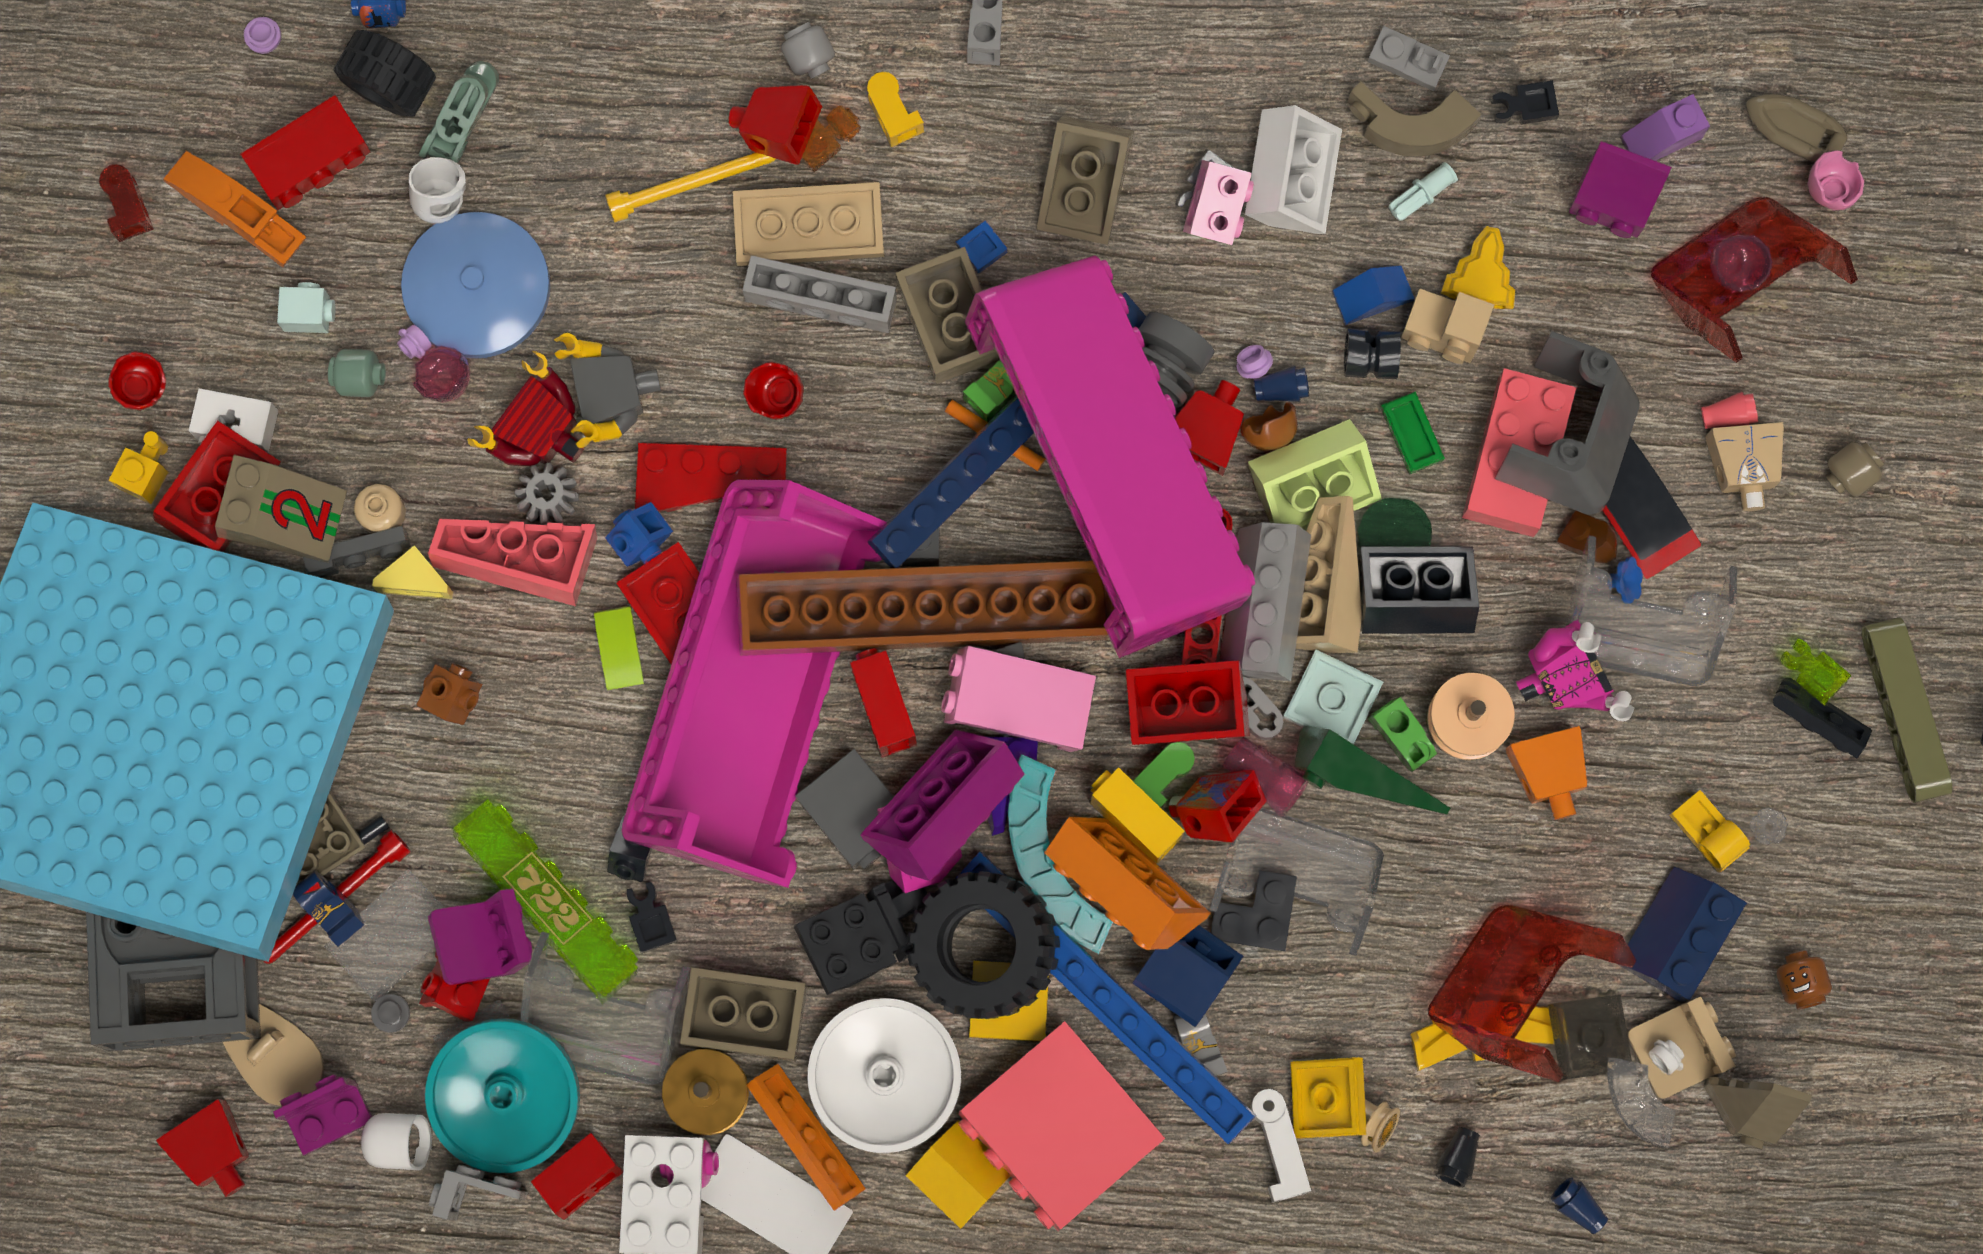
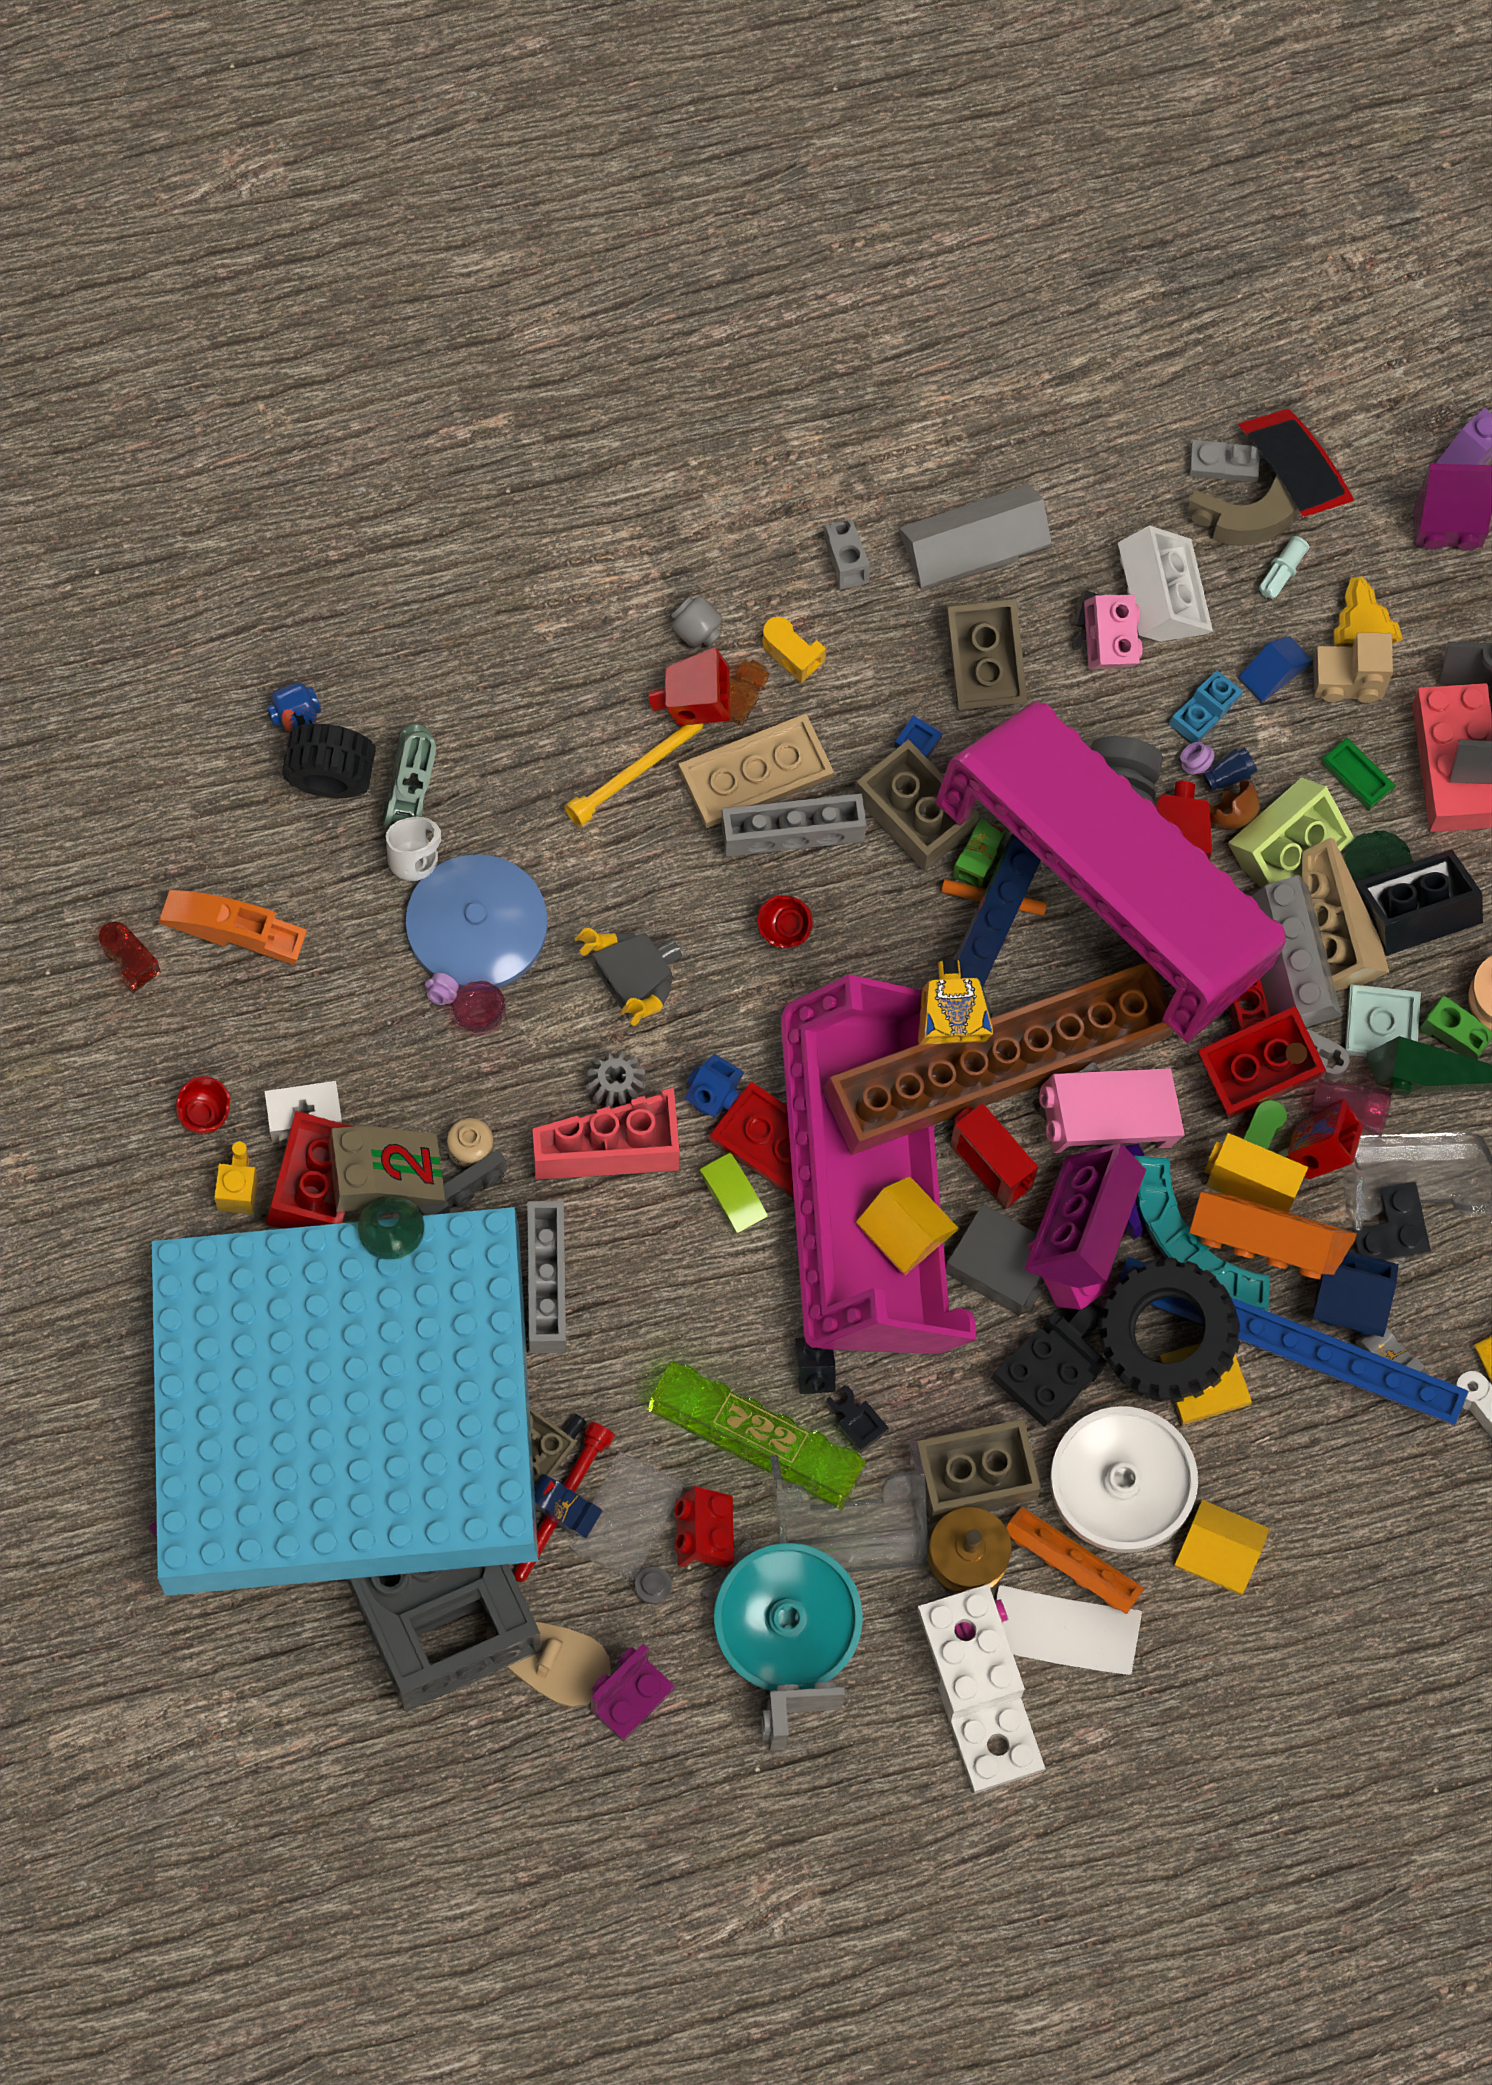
camera: 25 degrees left, 10 degrees down
(208, 1147) = (534, 1763): red torso -> none
(262, 35) = (196, 769): lavender plate -> none
(263, 588) = (391, 1241): none -> clear green piece
(305, 308) = (331, 992): light aqua brick -> none
(306, 153) = (282, 855): red slope -> none
(356, 373) = (401, 1032): sand green head -> none
(387, 1141) = (705, 1693): white helmet -> none
(401, 670) = (546, 1277): none -> light grey brick
(412, 577) = (525, 1186): light yellow slope -> none
(450, 693) = (598, 1281): dark orange brick -> none
(481, 939) = (719, 1481): magenta bracket -> none
(535, 422) = (581, 1019): dark red torso -> none
(577, 1176) = (882, 1668): red hinge -> none
(698, 474) = (742, 1018): red wing -> none
(770, 743) = (905, 1224): none -> yellow slope
(887, 547) = (953, 1009): none -> torso
(1059, 1127) = (1297, 1470): coral panel -> none
(1123, 54) = (977, 536): none -> light grey slope
(1221, 709) = (1296, 1053): none -> reddish brown sticker
(1285, 311) = (1206, 707): none -> dark azure slope
(1372, 354) = (1297, 716): black wheel -> none
(1480, 86) = (1298, 461): none -> black sticker
(1532, 102) = (1351, 460): black plate -> none

